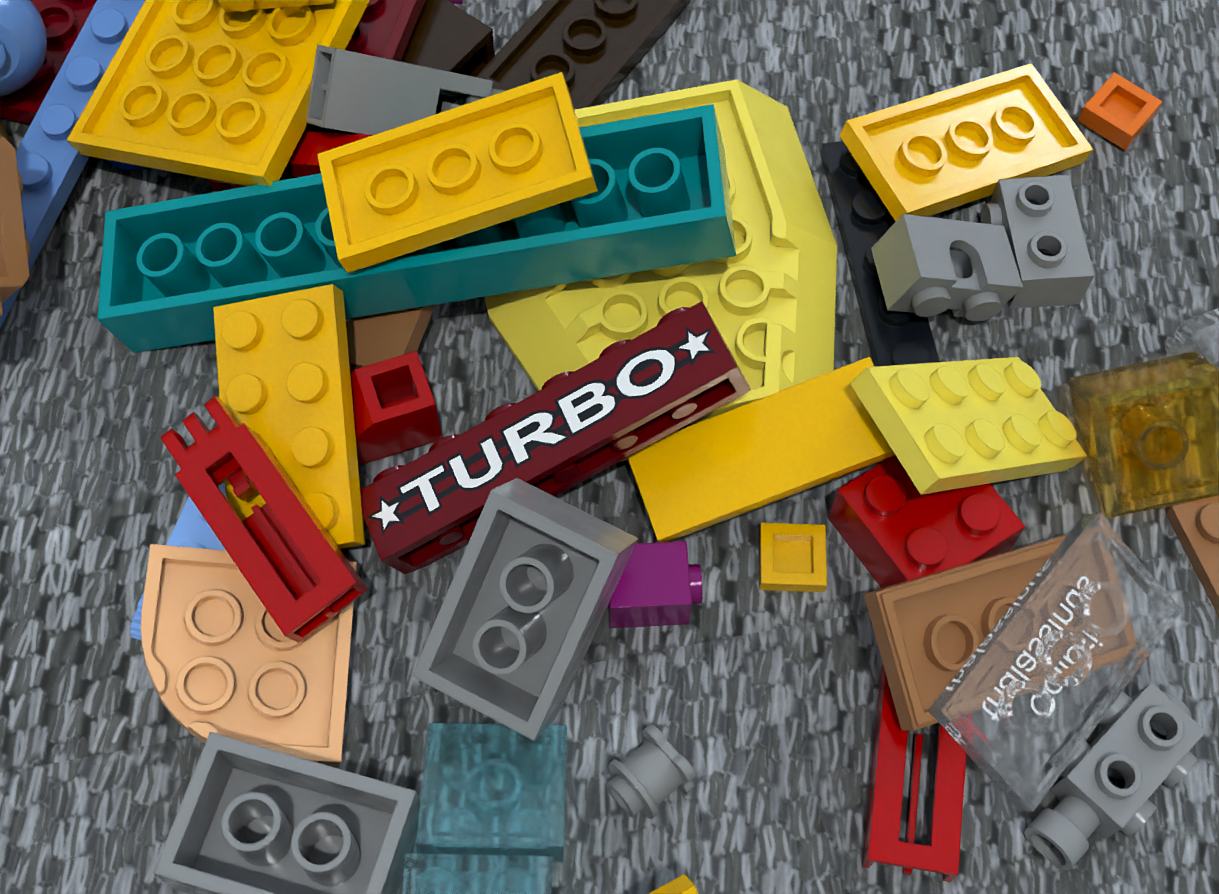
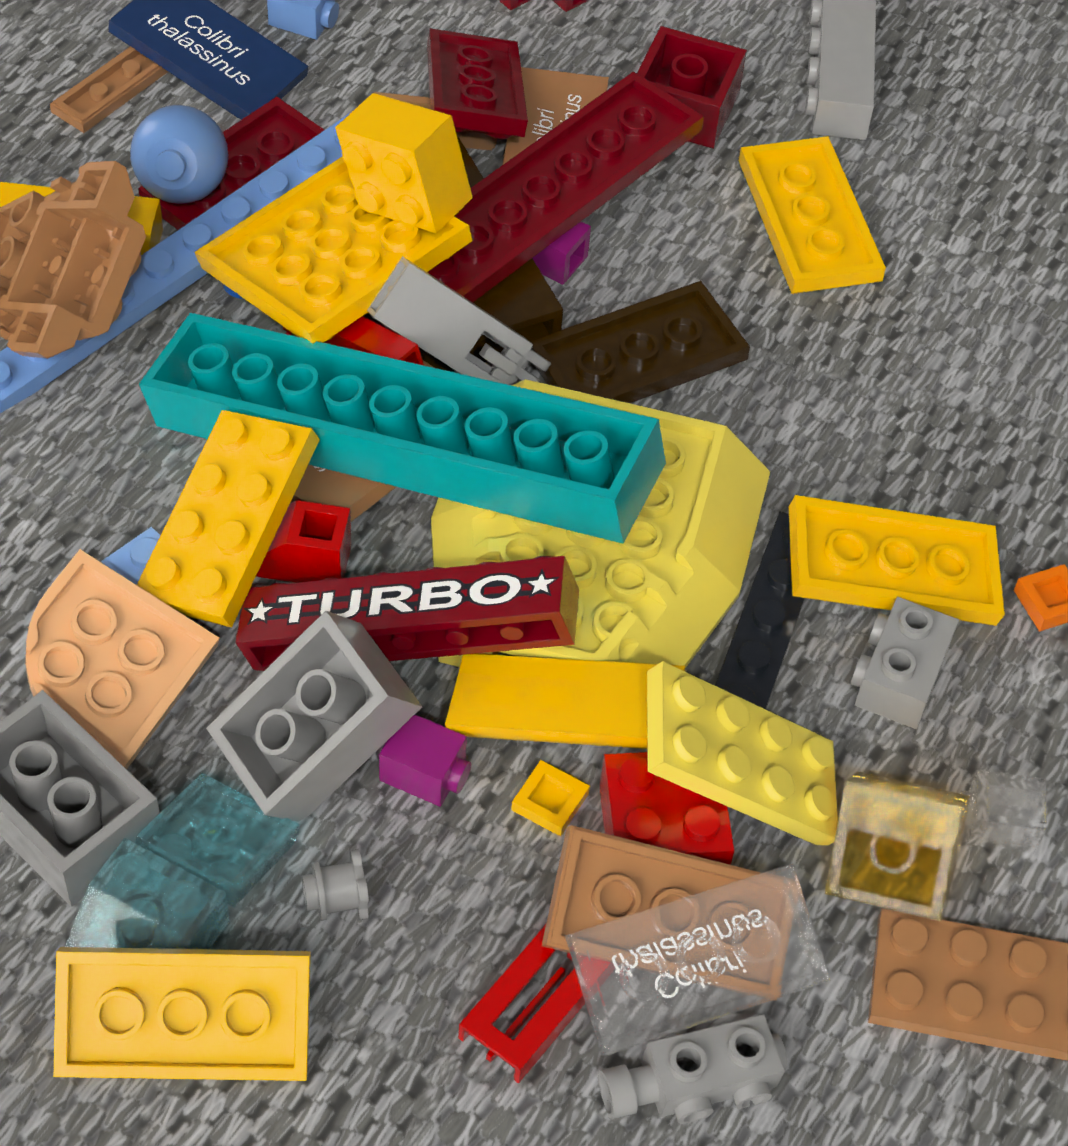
camera: 25 degrees right, 10 degrees down
(279, 546) = (166, 598): red hinge -> none
(455, 173) = (442, 386): yellow plate -> none
(928, 278) = (785, 641): light grey brick -> none

